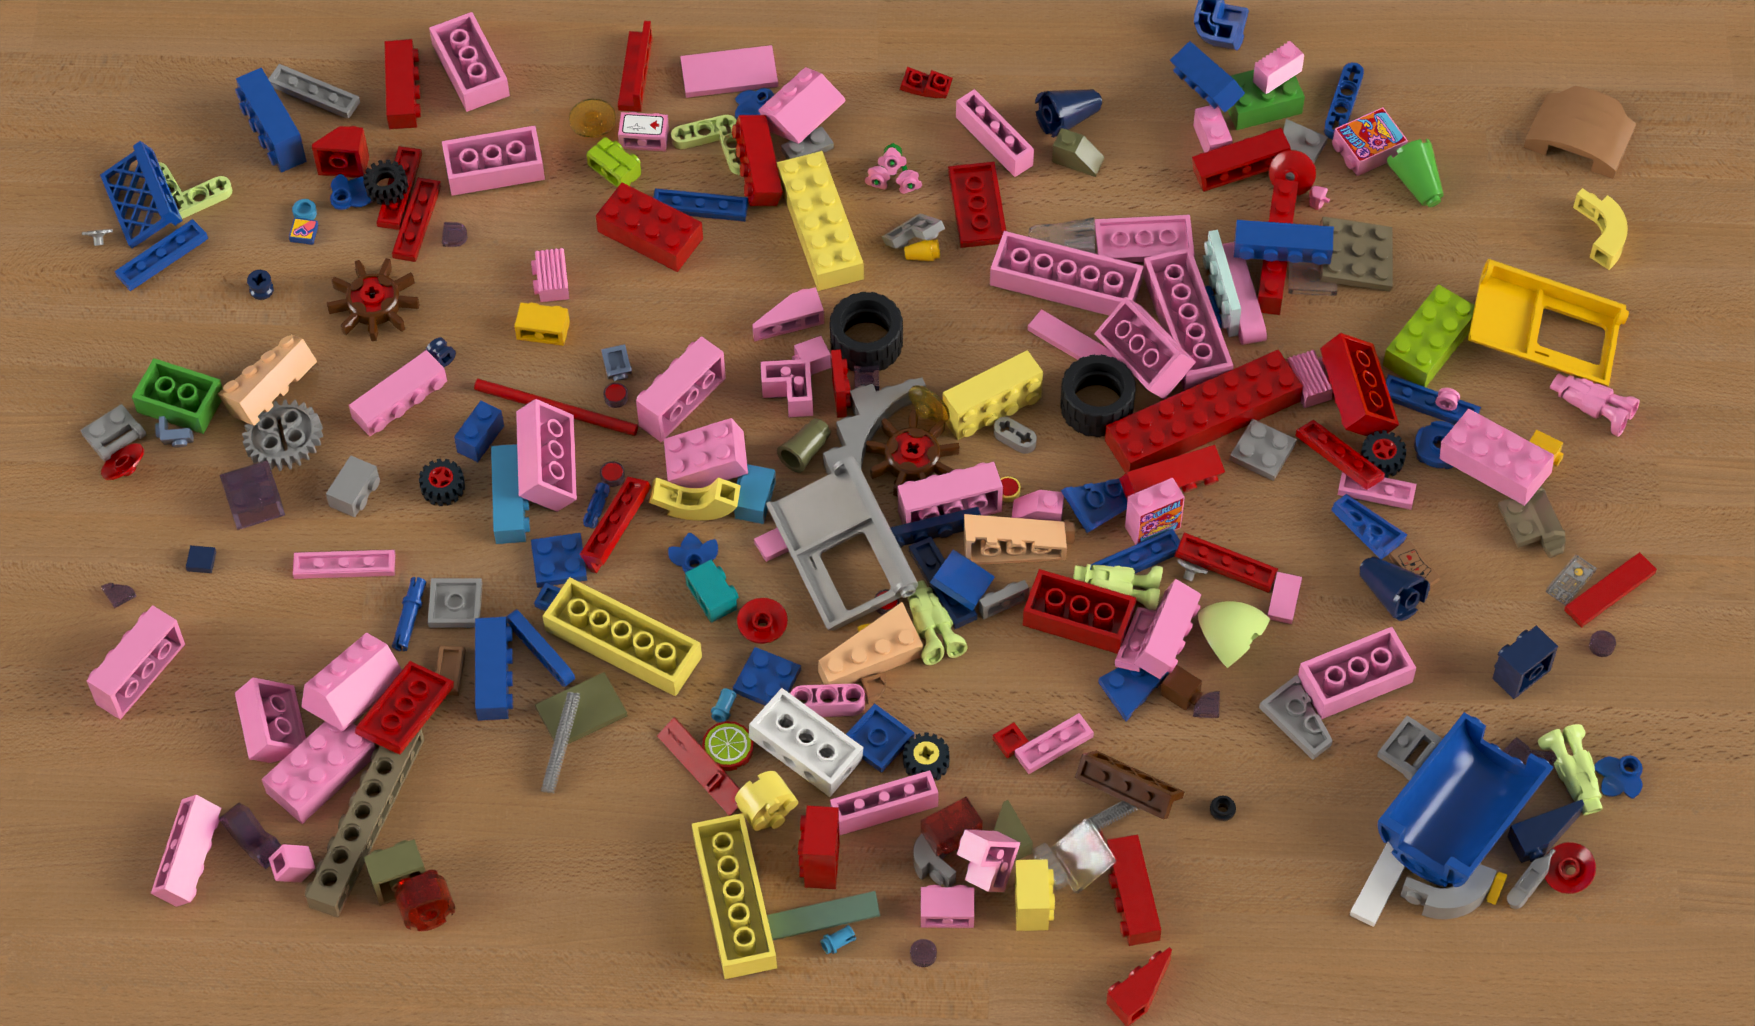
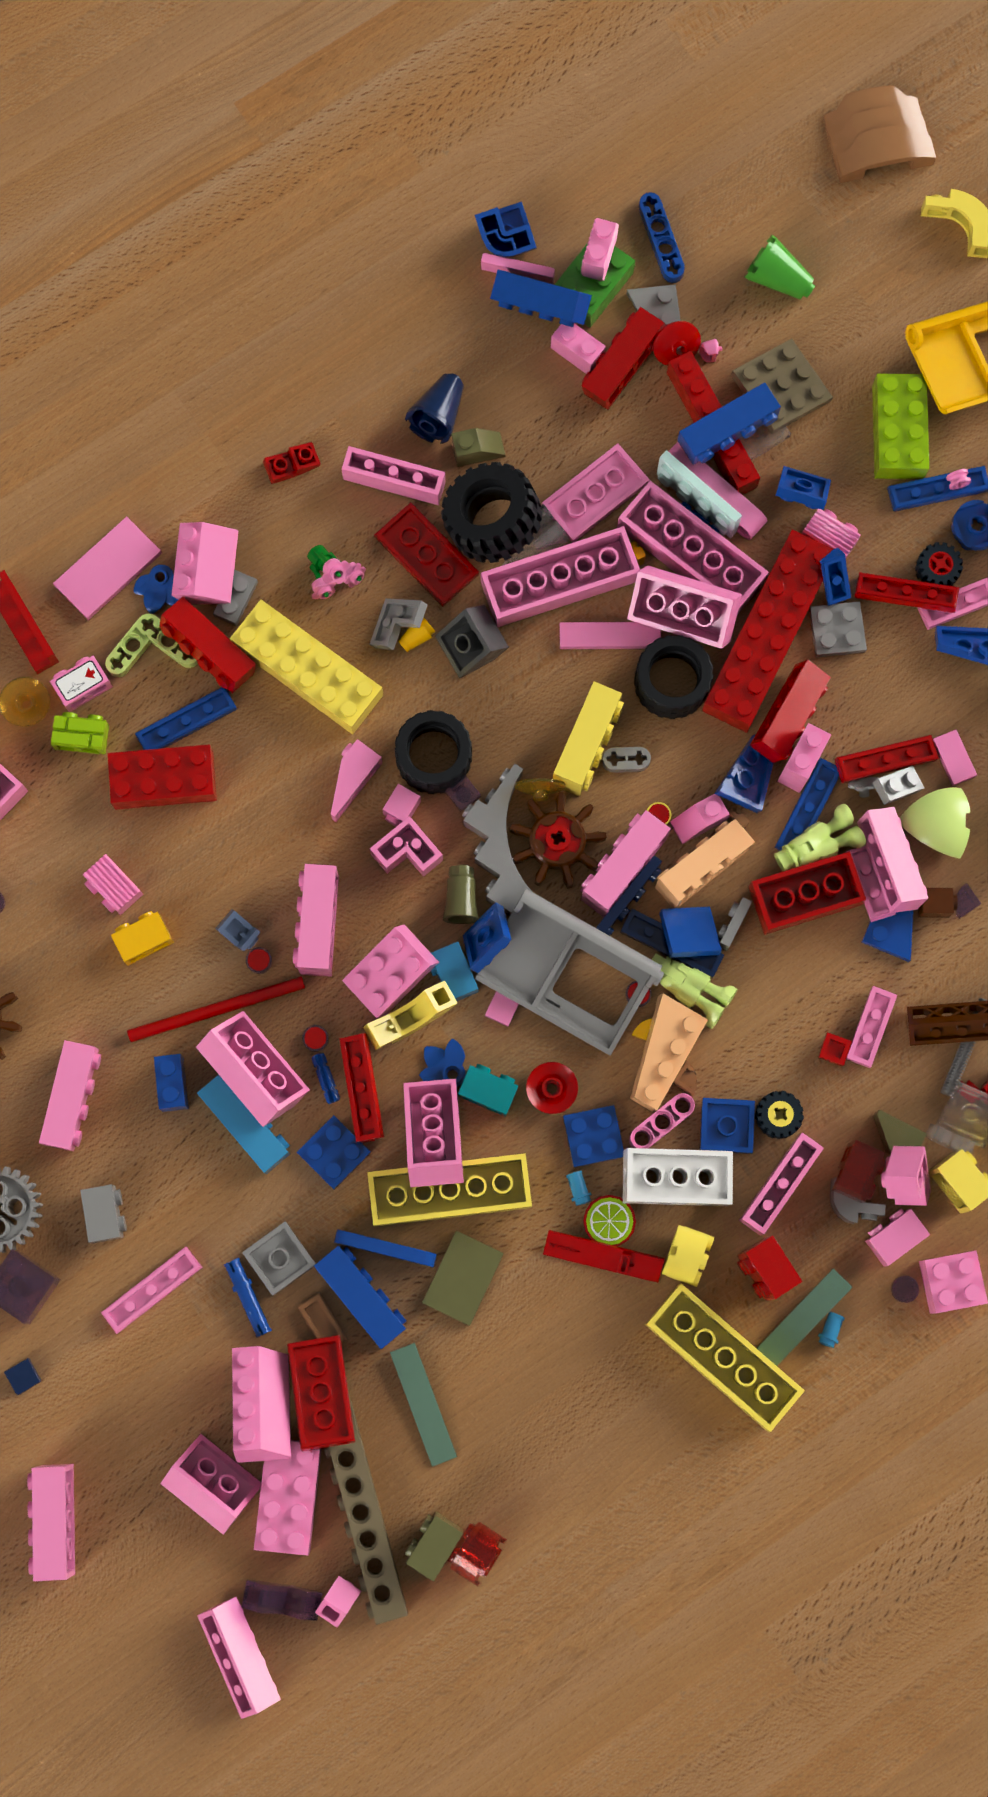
camera: 40 degrees left, 20 degrees up
(435, 475) = (168, 1149): black wheel -> none
(441, 352) = (74, 1029): dark blue wheel -> none
(475, 777) = (423, 1404): none -> sand green piece
(546, 596) = (356, 1193): blue tile -> none
(560, 741) = (474, 1324): light grey axle -> none
(641, 580) = (433, 1133): none -> bright pink brick
(801, 478) = (487, 937): none -> blue plate
(841, 383) = (456, 825): red plate -> none
(962, 279) = (471, 640): none -> dark grey slope
(965, 969) = (953, 1282): none -> bright pink brick
(1046, 195) = (476, 490): none -> black tyre
(1142, 297) = (639, 553): none -> yellow tile
(1191, 35) = (538, 272): none -> bright pink tile
(1218, 583) = (898, 785): none -> plate
(1285, 404) = (835, 577): none -> blue slope
(1310, 327) = (803, 488): none -> blue plate
(1358, 385) = (881, 518): red brick -> none
(1368, 141) = (714, 266): brick -> none

